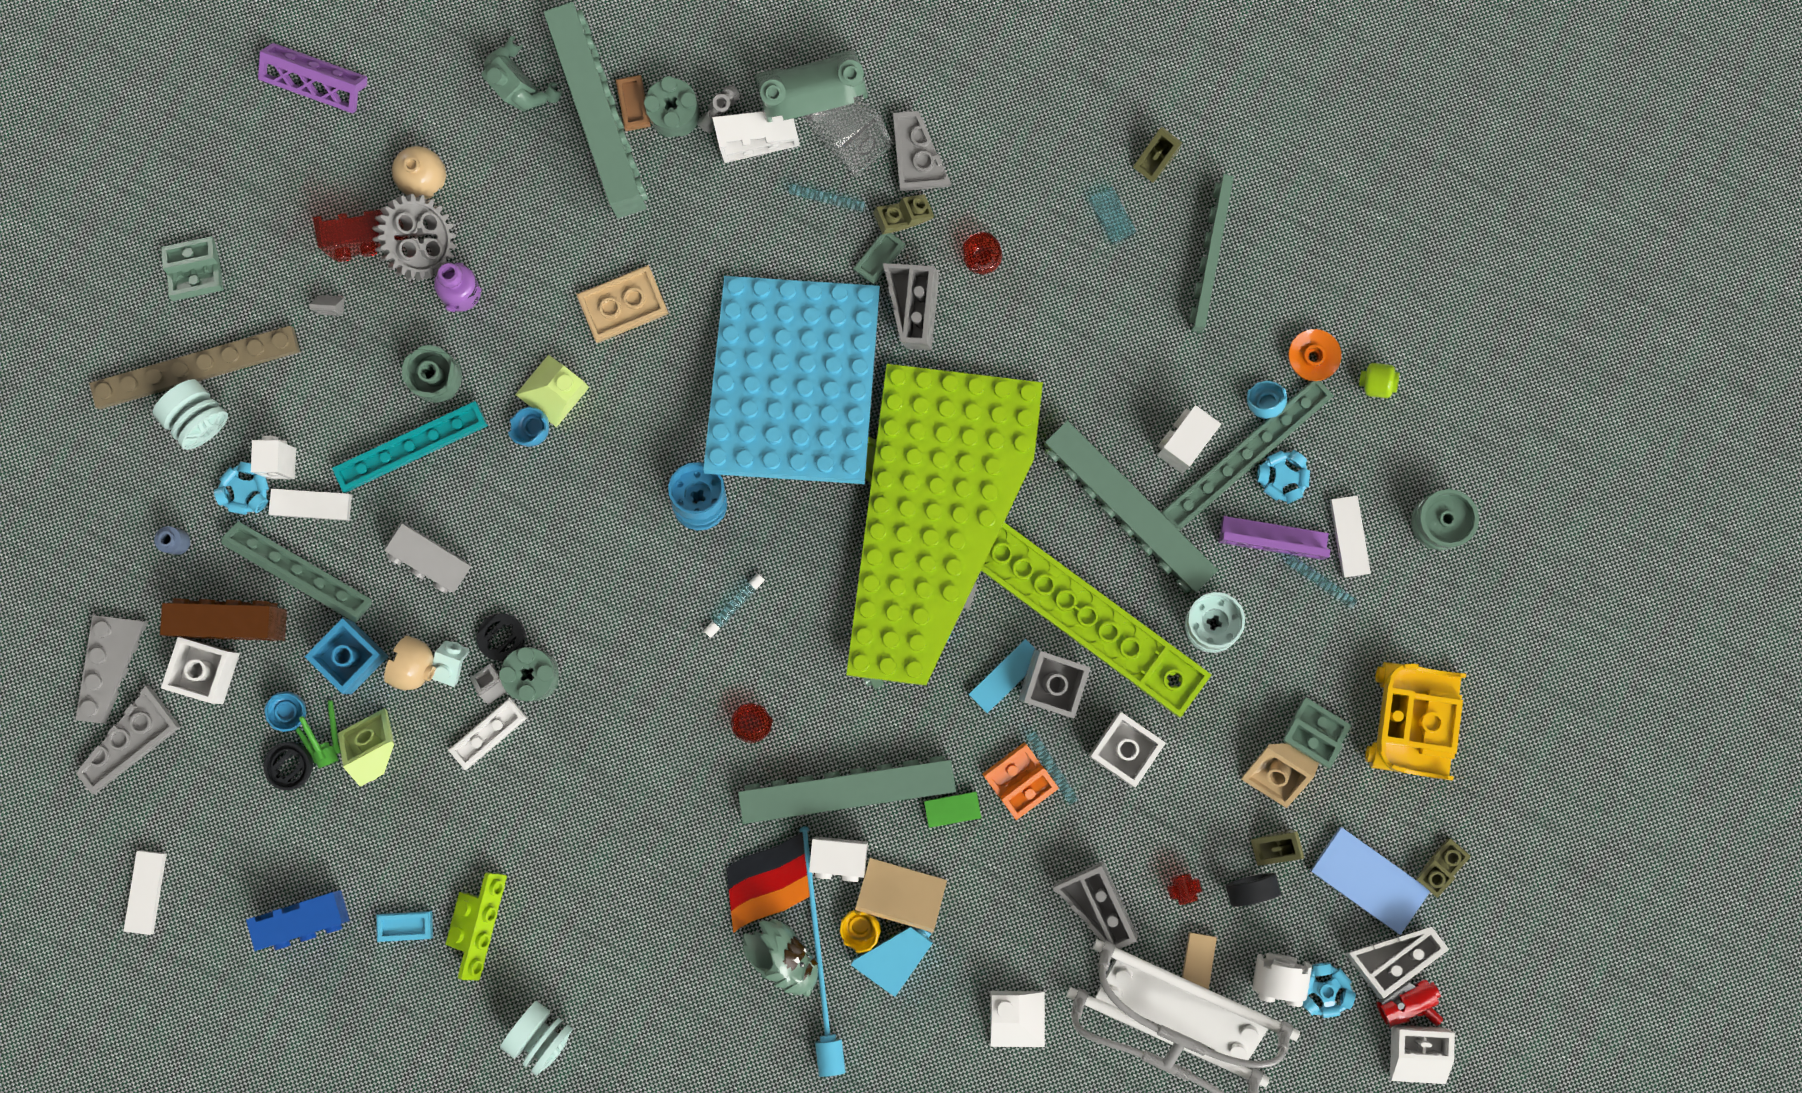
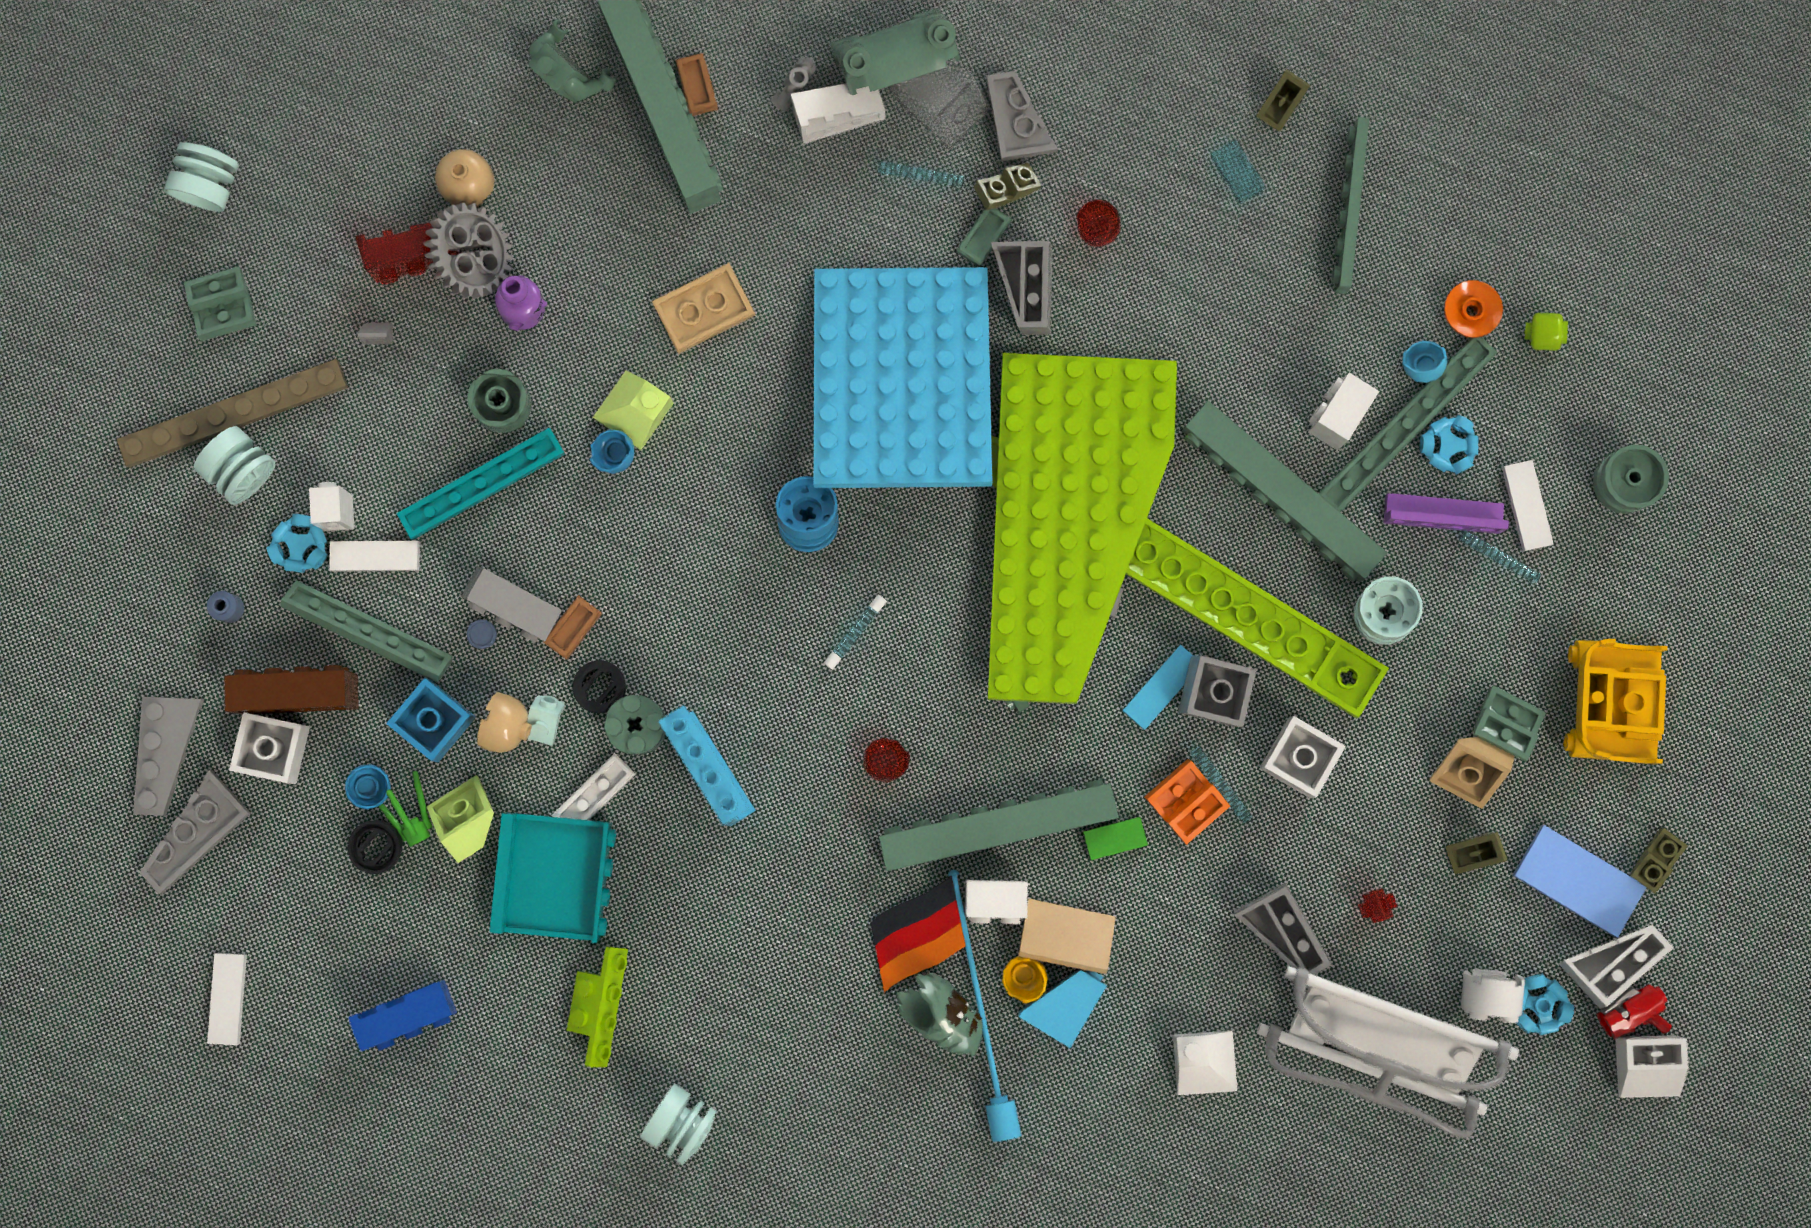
camera: 10 degrees left, 0 degrees up
(182, 155) = (202, 172): none -> light aqua wheel
(311, 68) = (332, 72): medium lavender fence -> none
(400, 582) = (481, 634): none -> sand blue piece
(404, 926) = (519, 1014): medium azure tile -> none
(443, 805) = (552, 876): none -> teal panel
(481, 582) = (572, 627): none -> medium nougat tile
(488, 684) = (590, 739): light grey slope -> none
(587, 718) = (707, 766): none -> medium azure panel
(671, 93) = (741, 70): sand green brick -> none
(1199, 959) = (1399, 979): tan tile -> none
(1253, 889) = (1453, 899): black tyre -> none

